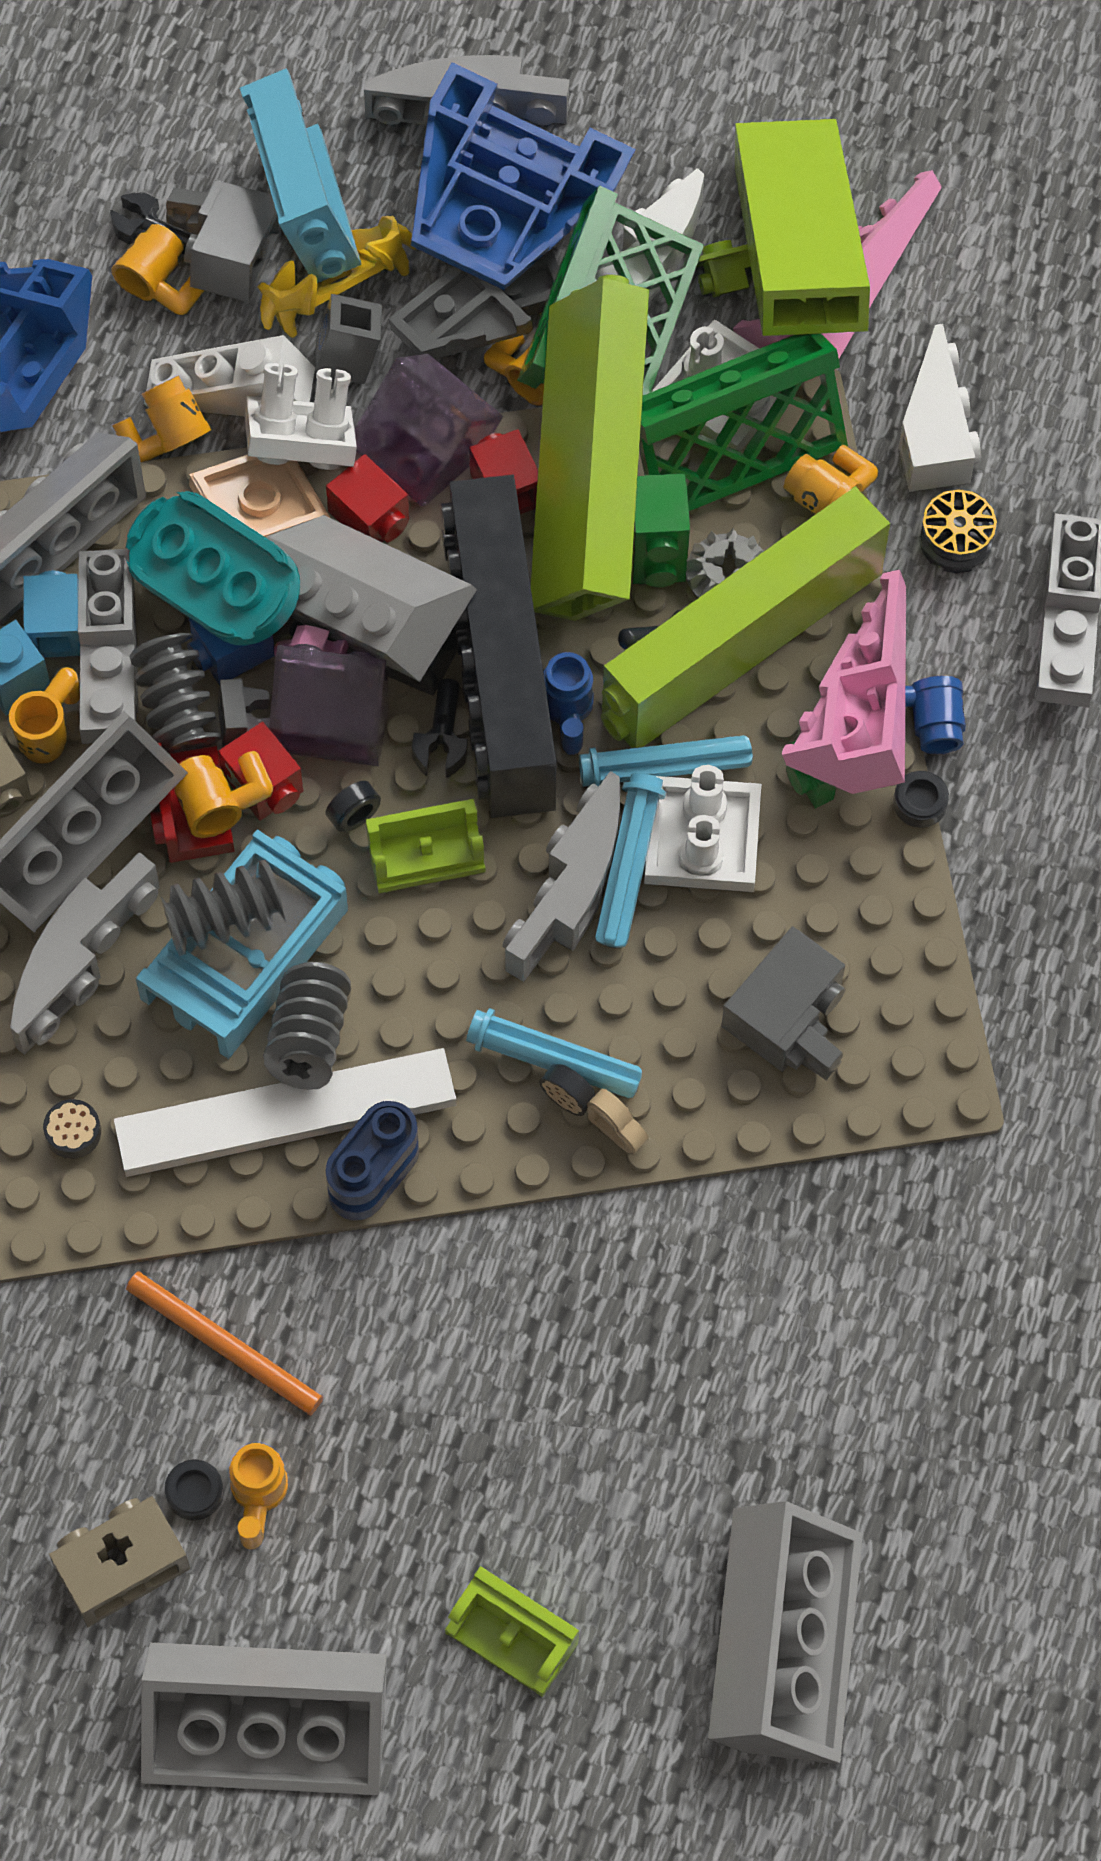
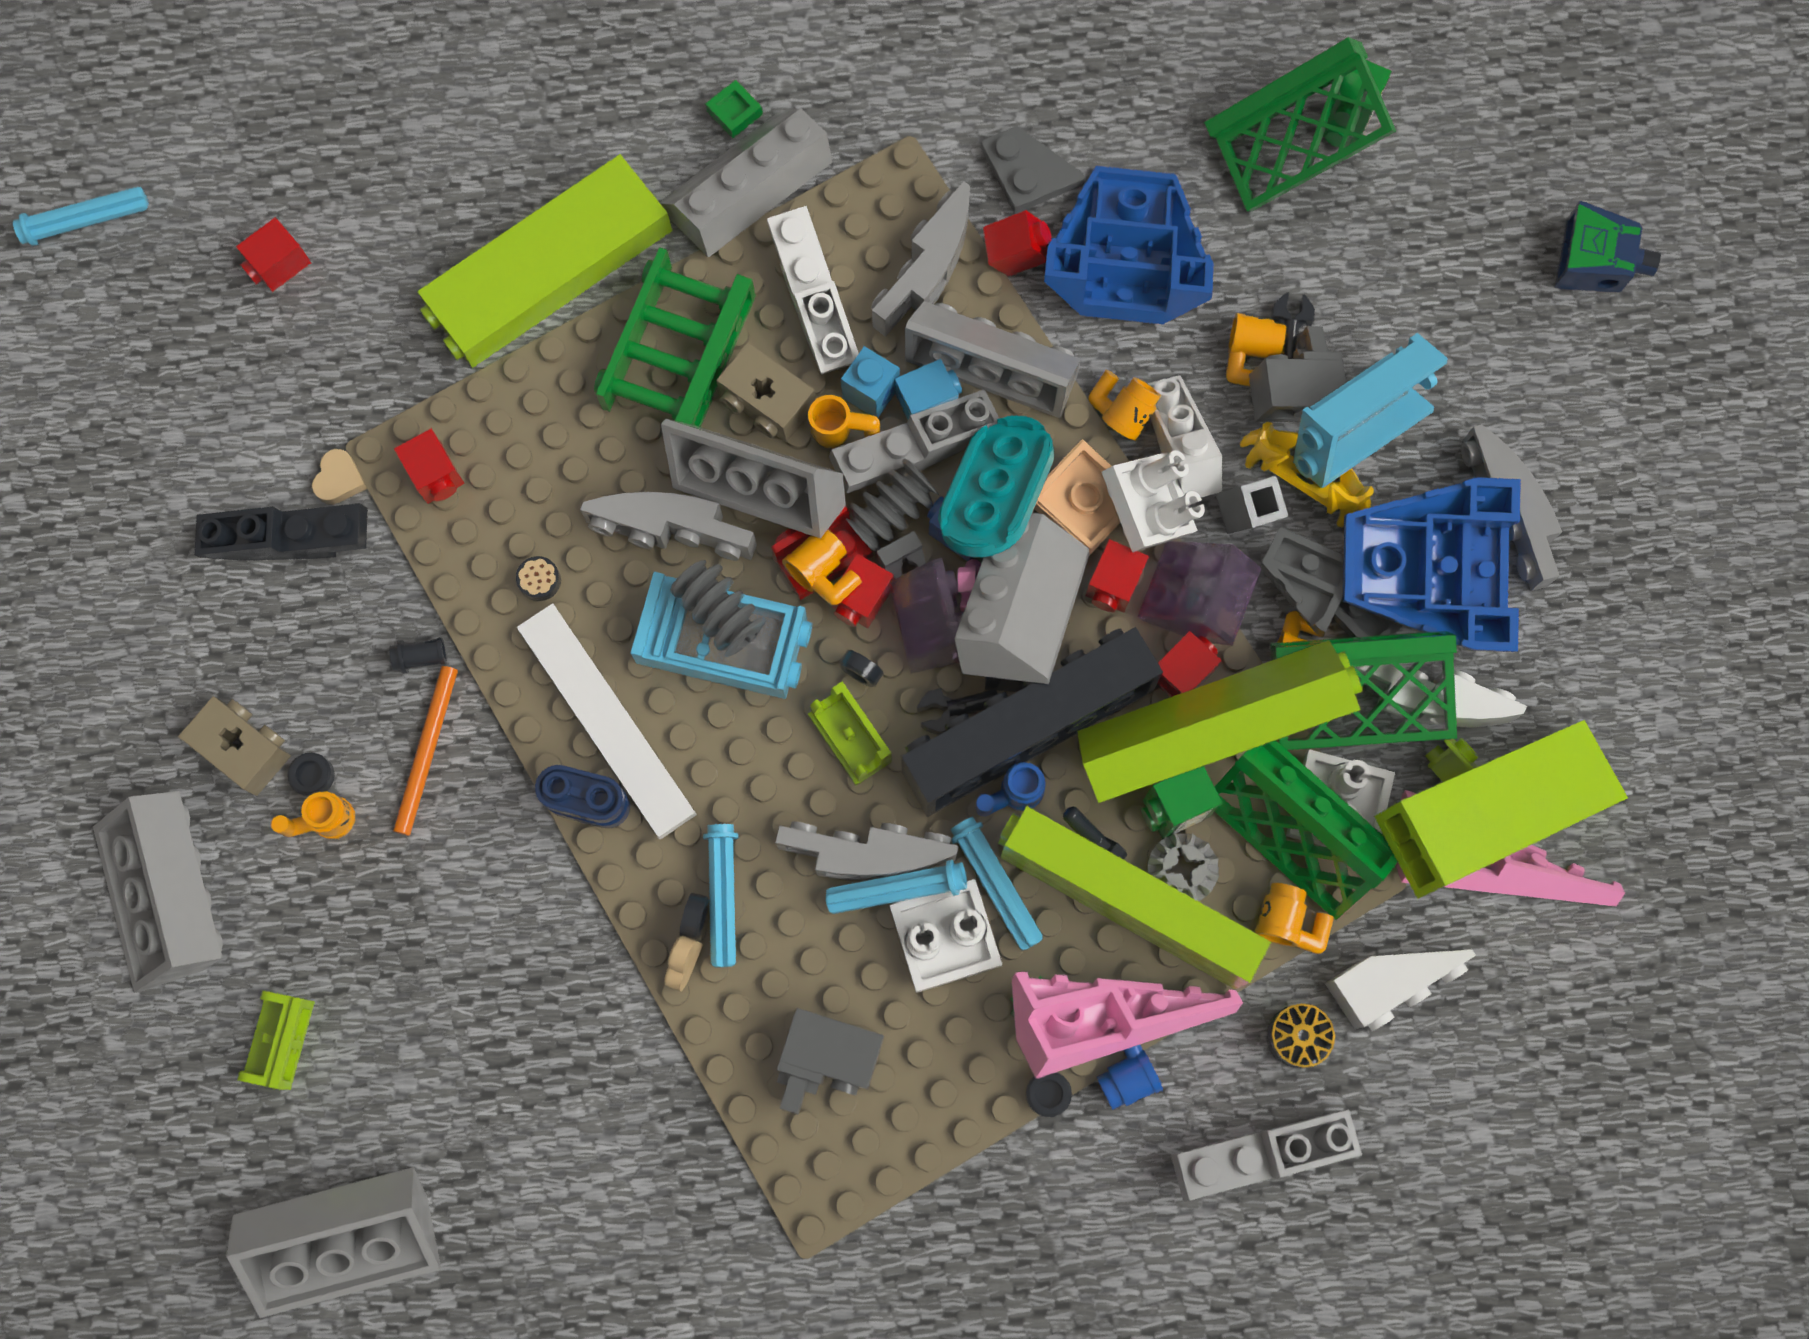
camera: 70 degrees right, 10 degrees up
(99, 1308) = (417, 654): none -> black pin
(307, 1025) = (667, 705): dark grey piece -> none

